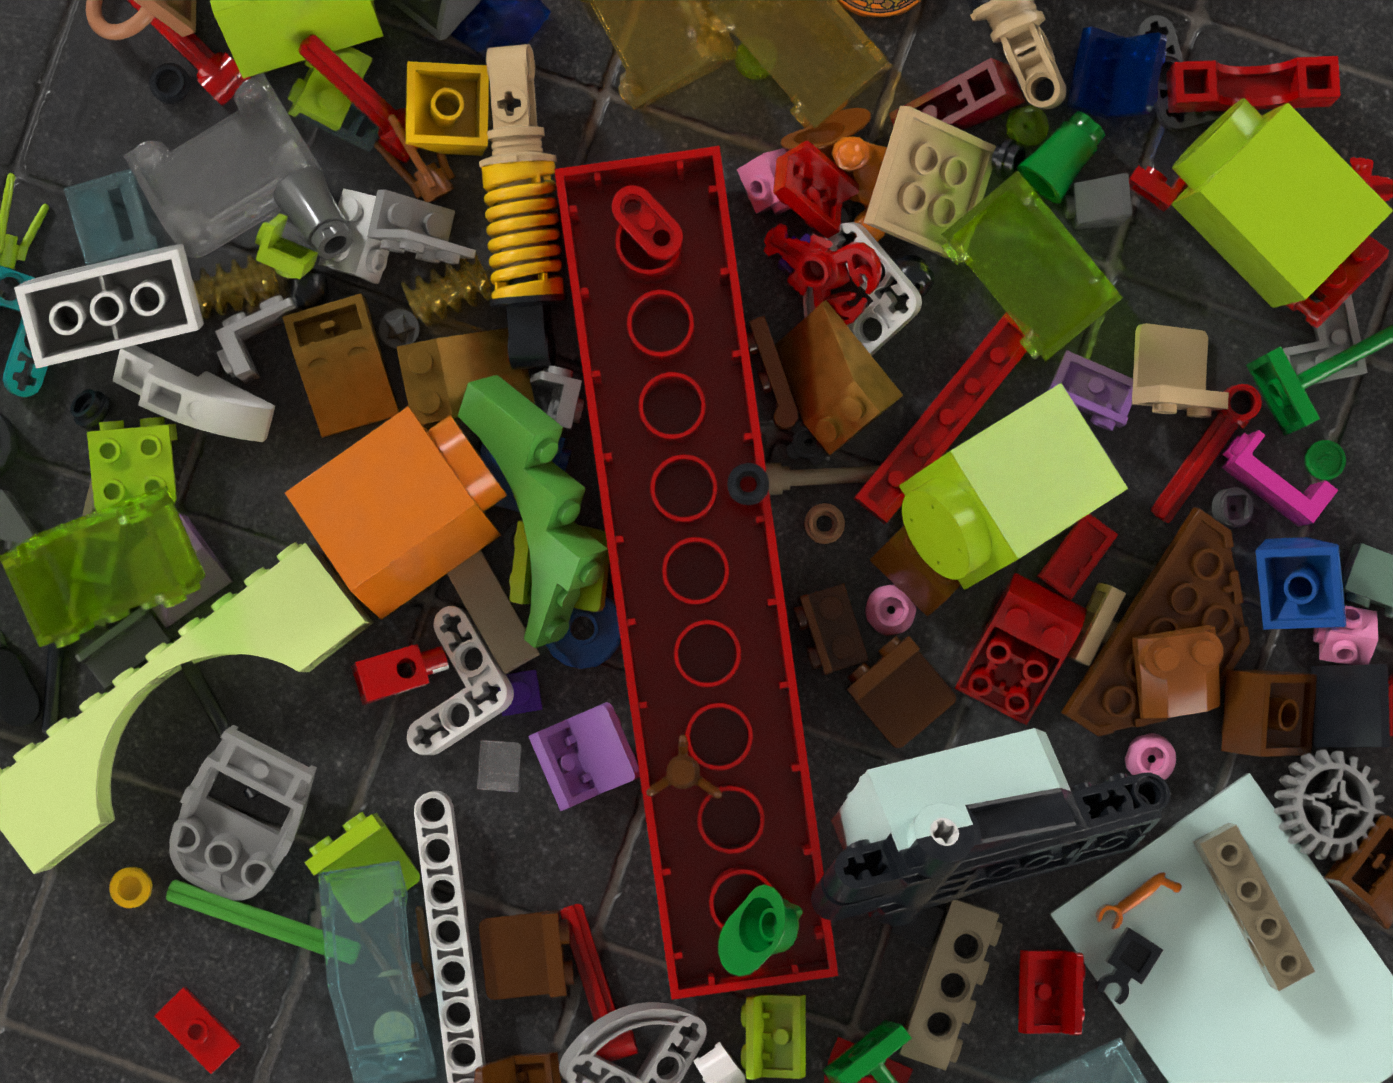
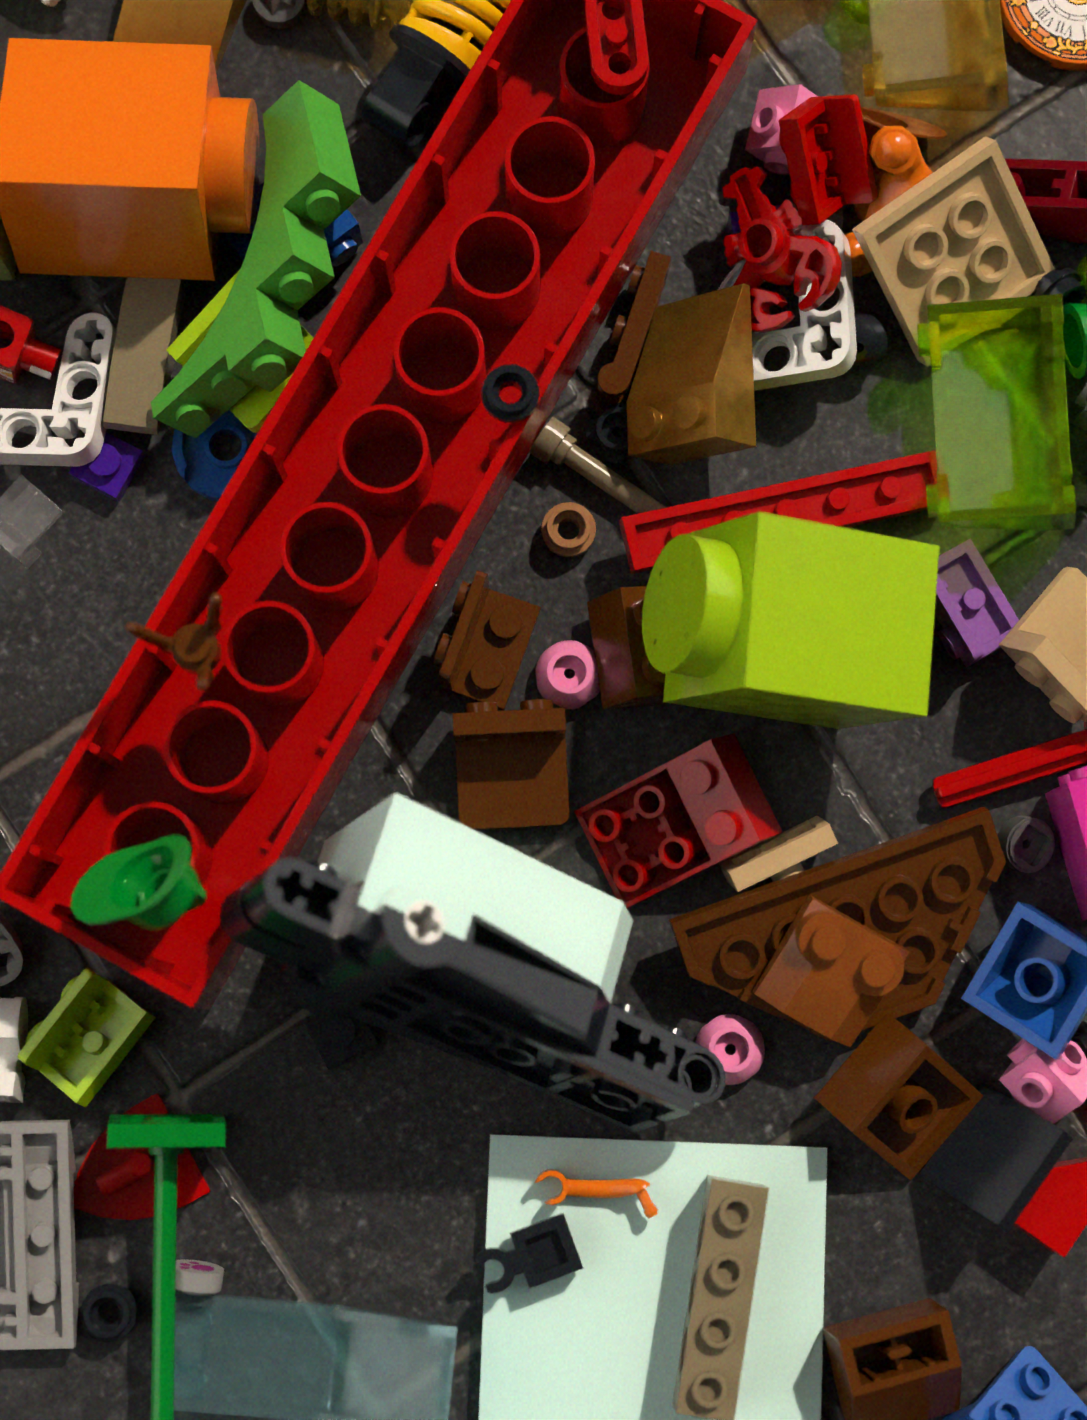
camera: 35 degrees right, 5 degrees down
(440, 369) = (280, 51): pearl gold slope -> none
(564, 401) = (397, 158): light grey bracket -> none
(585, 755) = (114, 573): medium lavender bracket -> none
(958, 919) = (239, 1163): dark tan brick -> none
(1051, 991) = (424, 1221): red bracket -> none
(1077, 556) = (816, 767): red plate -> none
(1337, 774) = (925, 1222): light grey gear -> none

